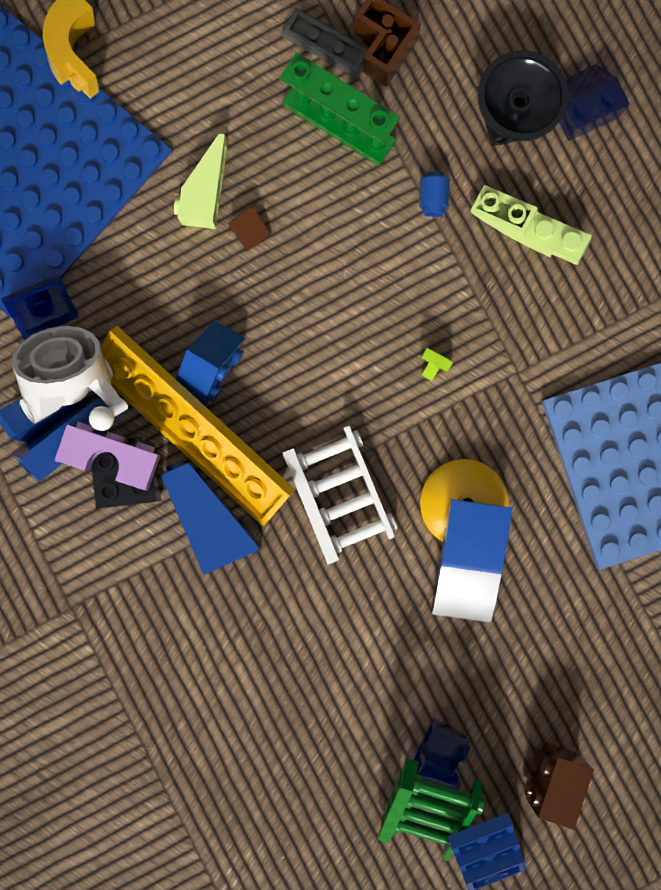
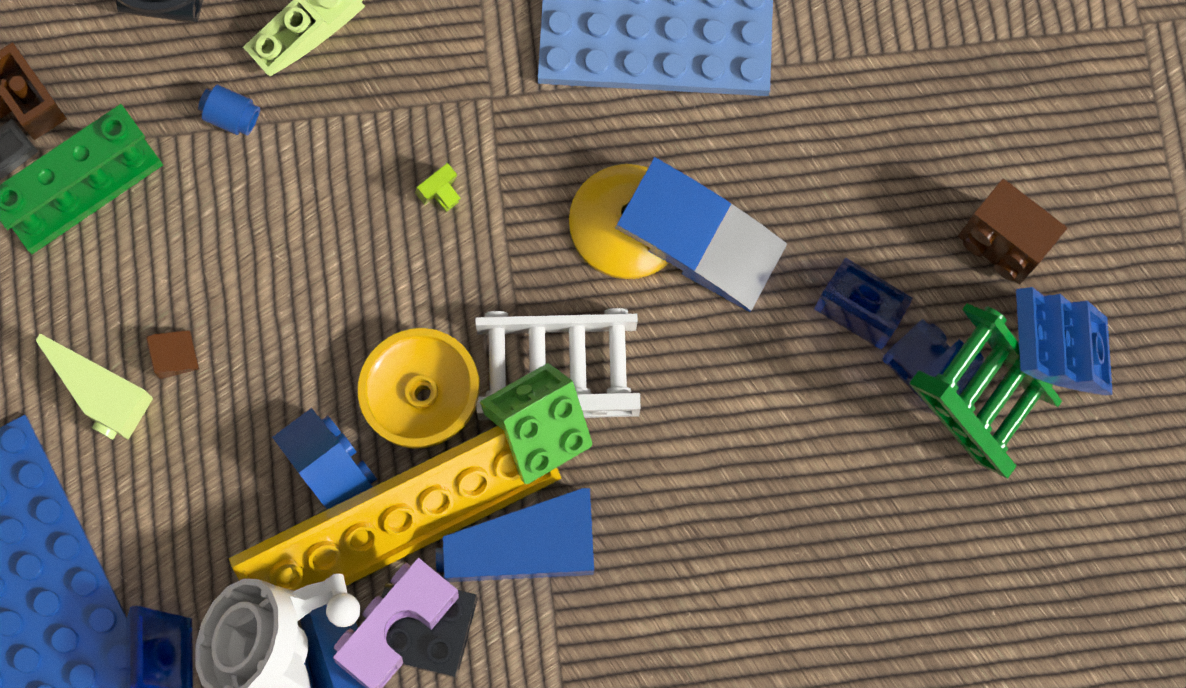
camera: 75 degrees left, 10 degrees down
(280, 386) = (403, 368): none -> yellow dish
(291, 497) = (539, 421): none -> bright green bracket
(467, 693) = (863, 303): none -> clear blue slope

